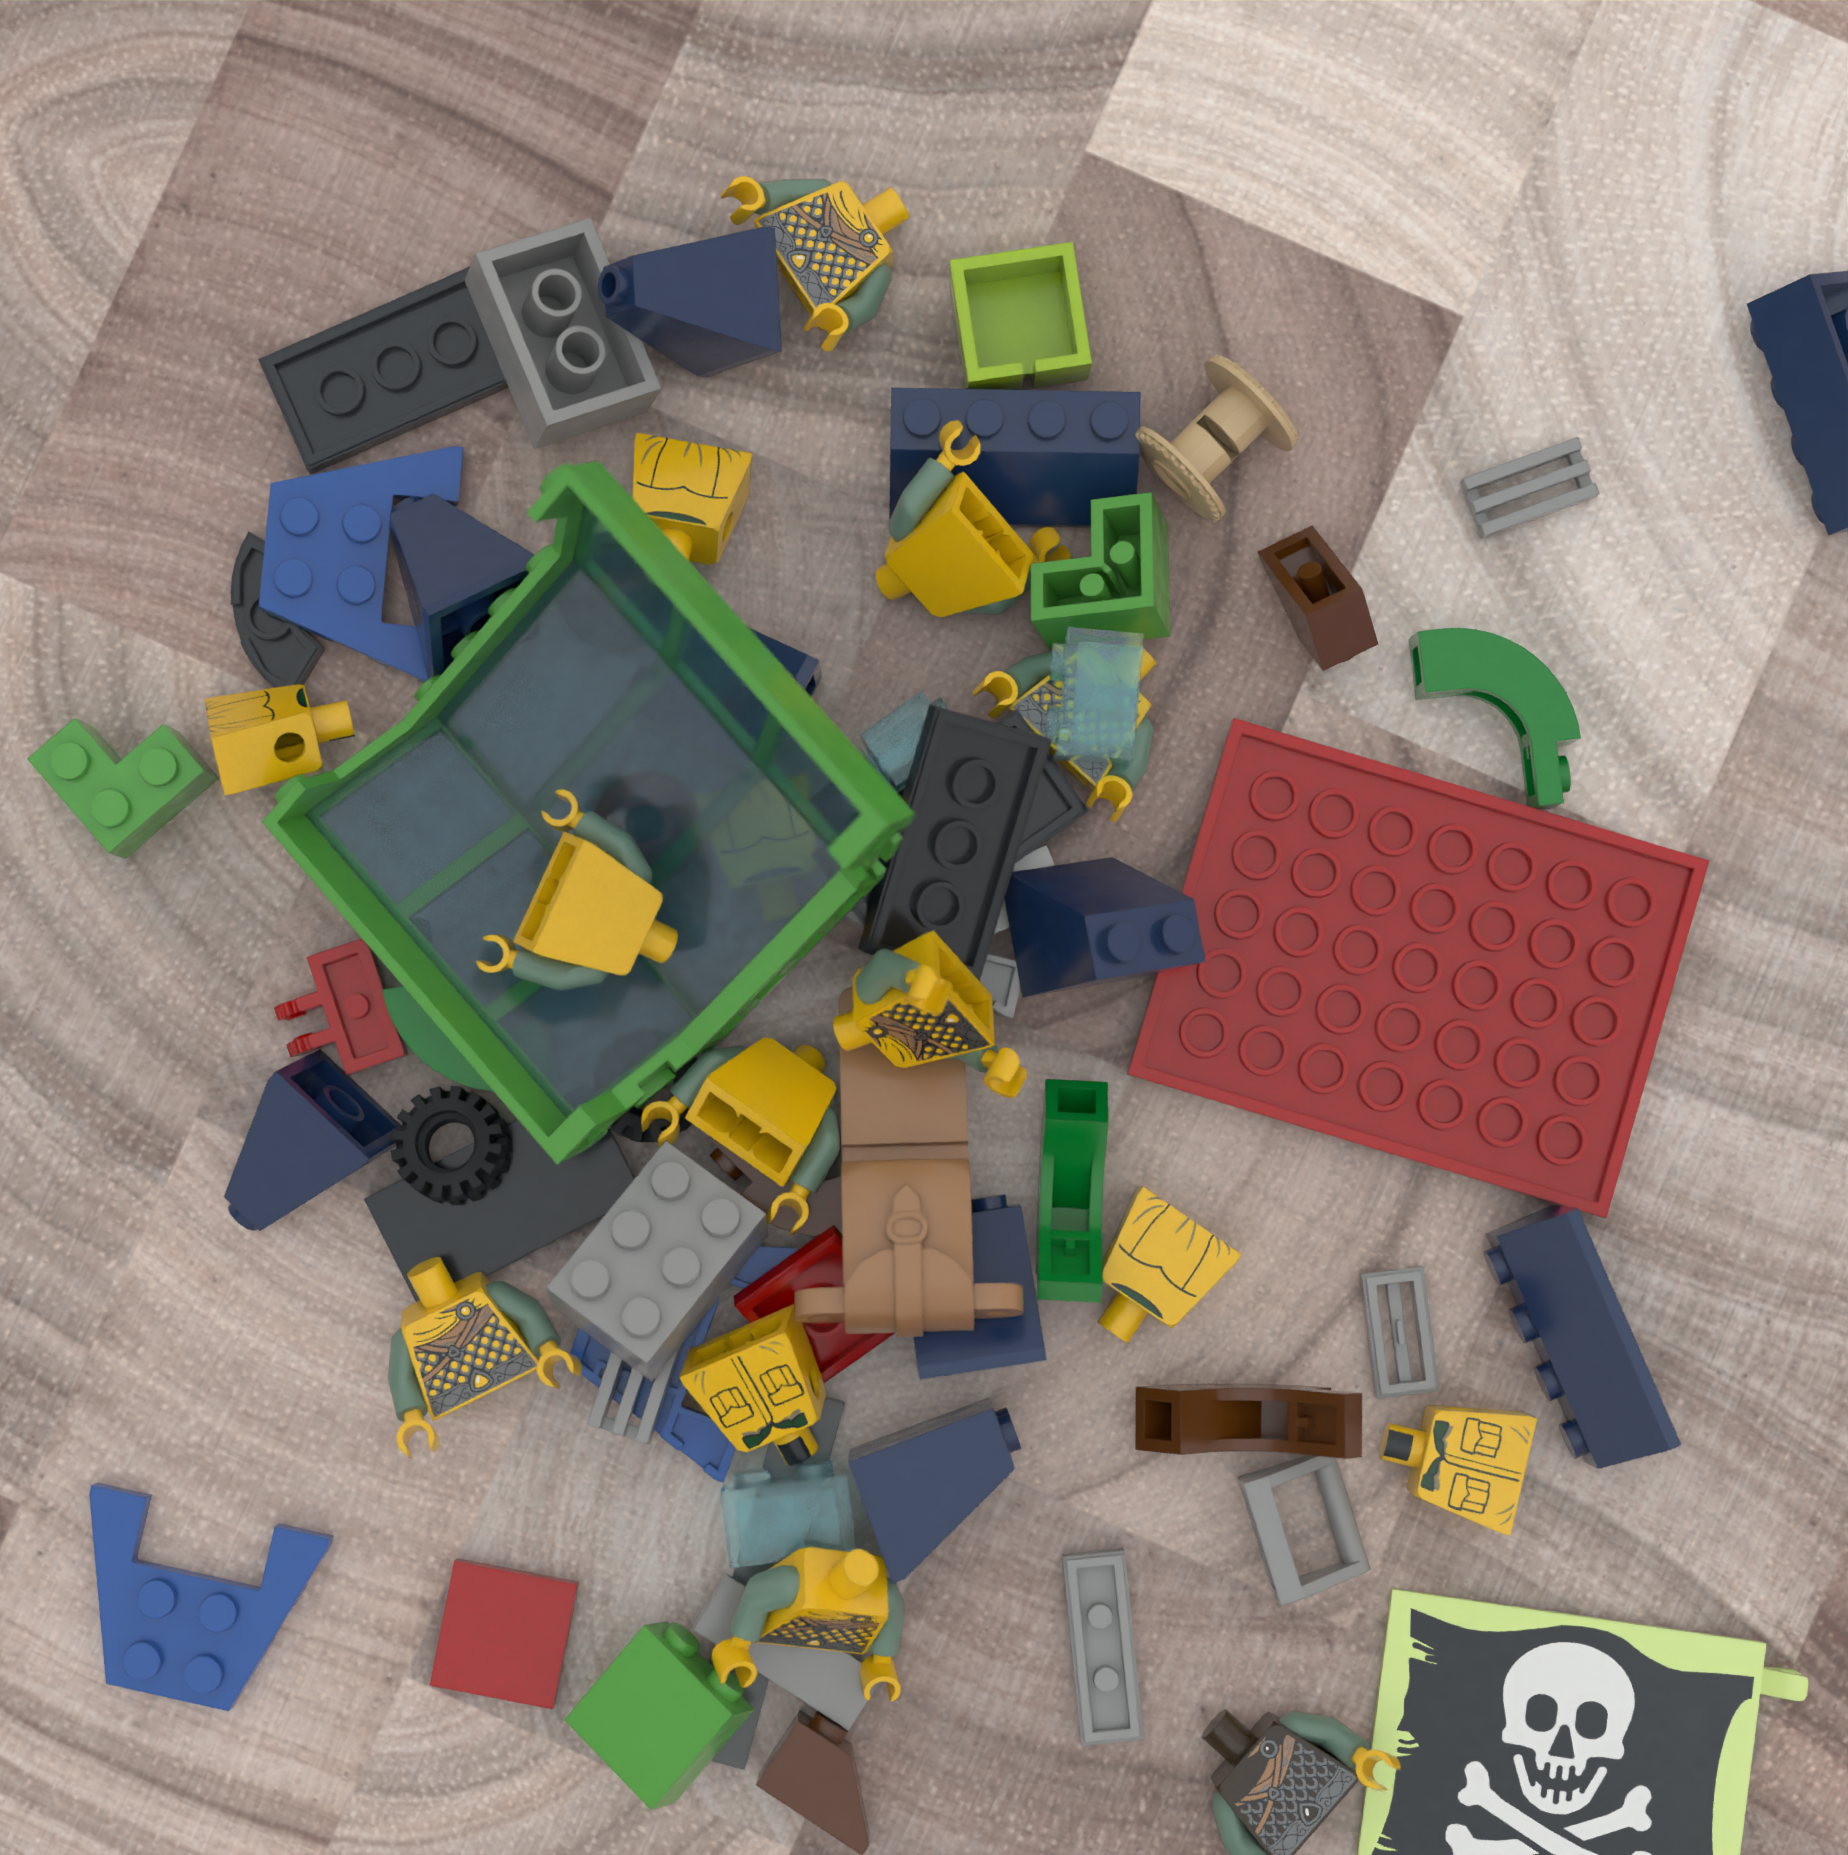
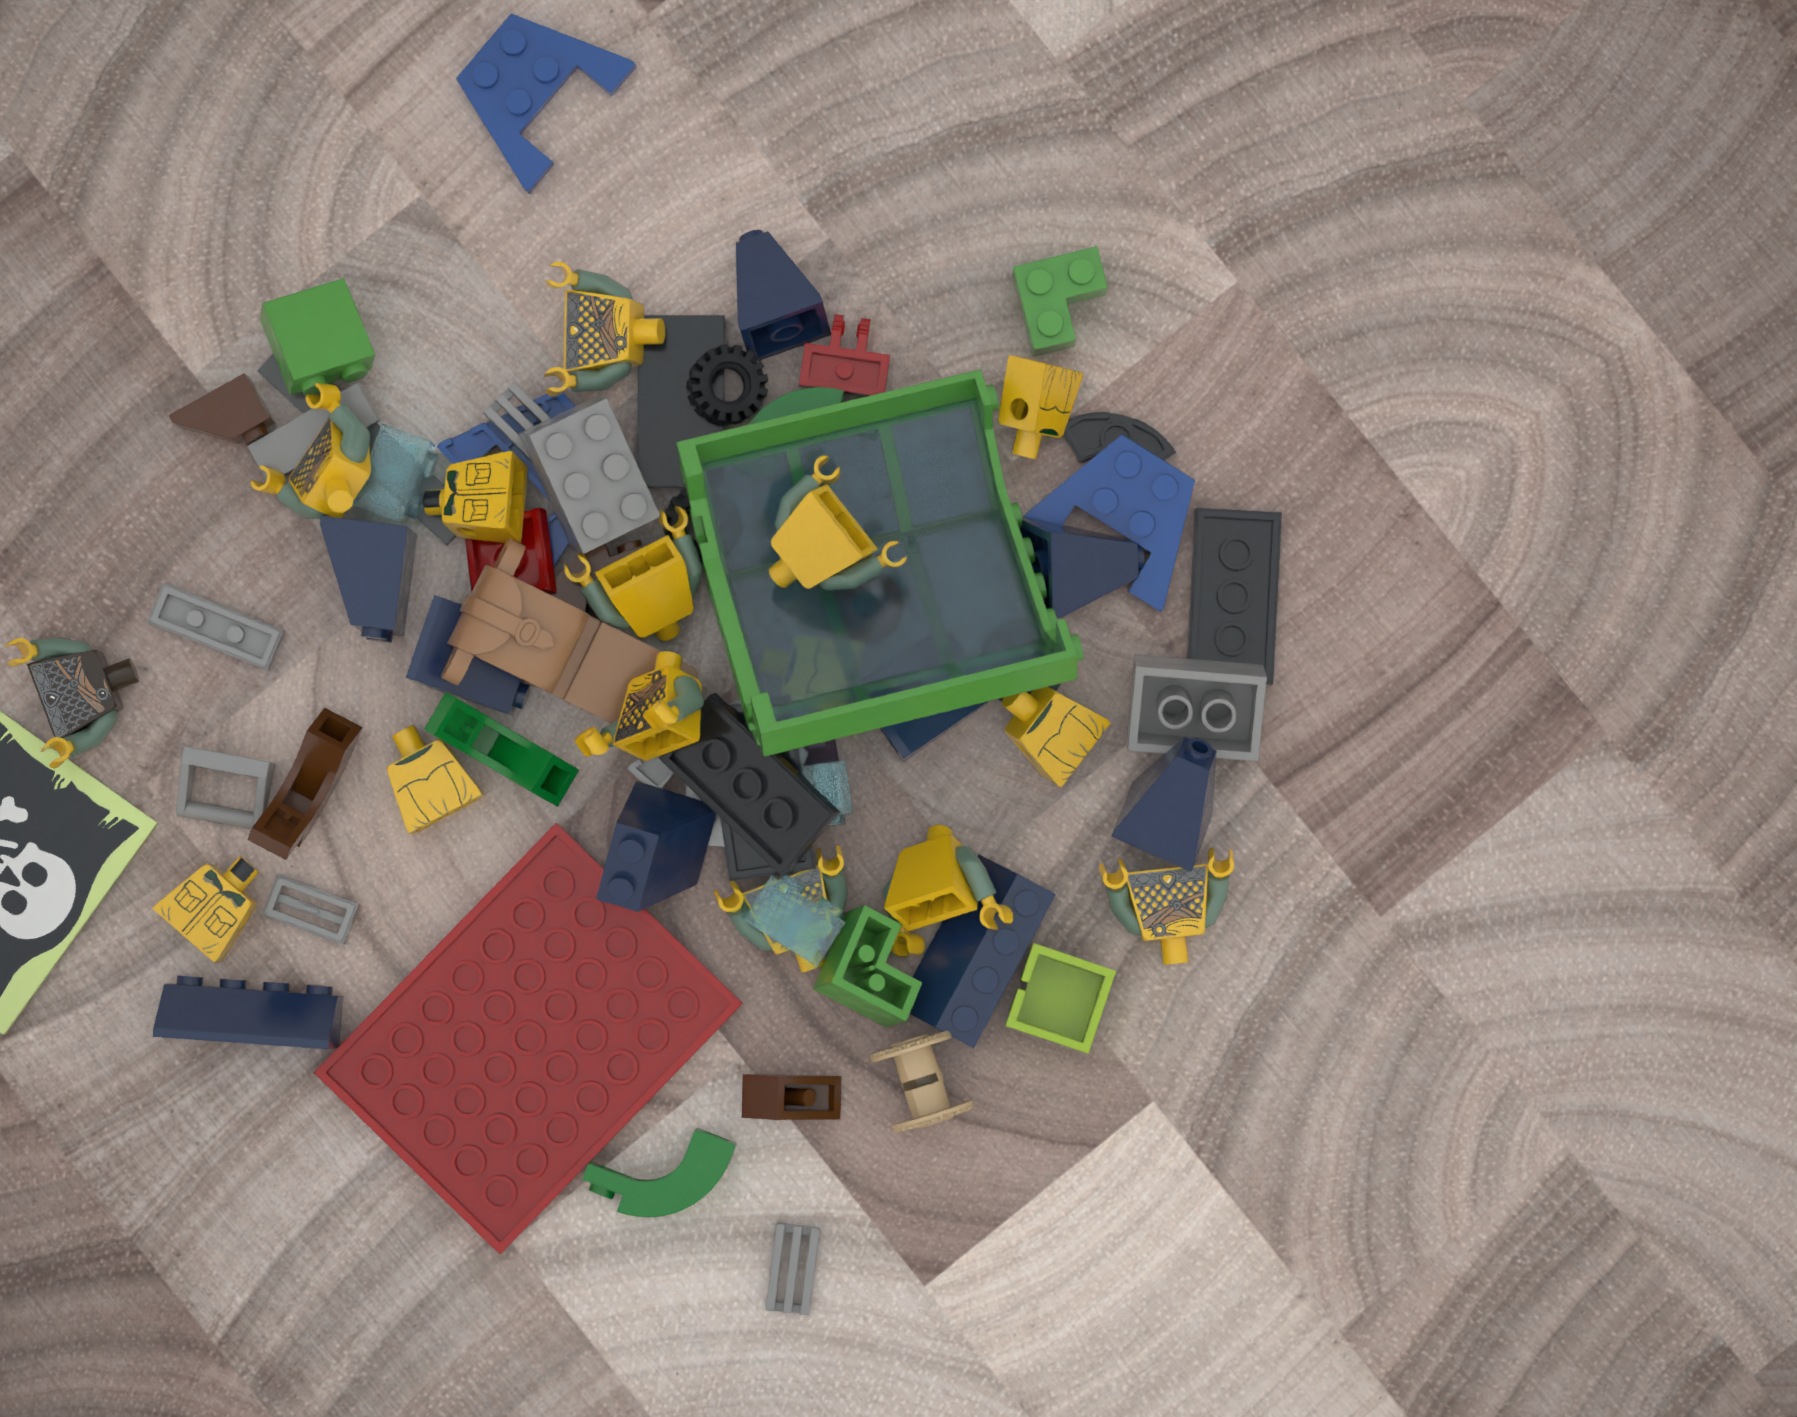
camera: 125 degrees right, 0 degrees up
(504, 1633) = (415, 267): red tile -> none

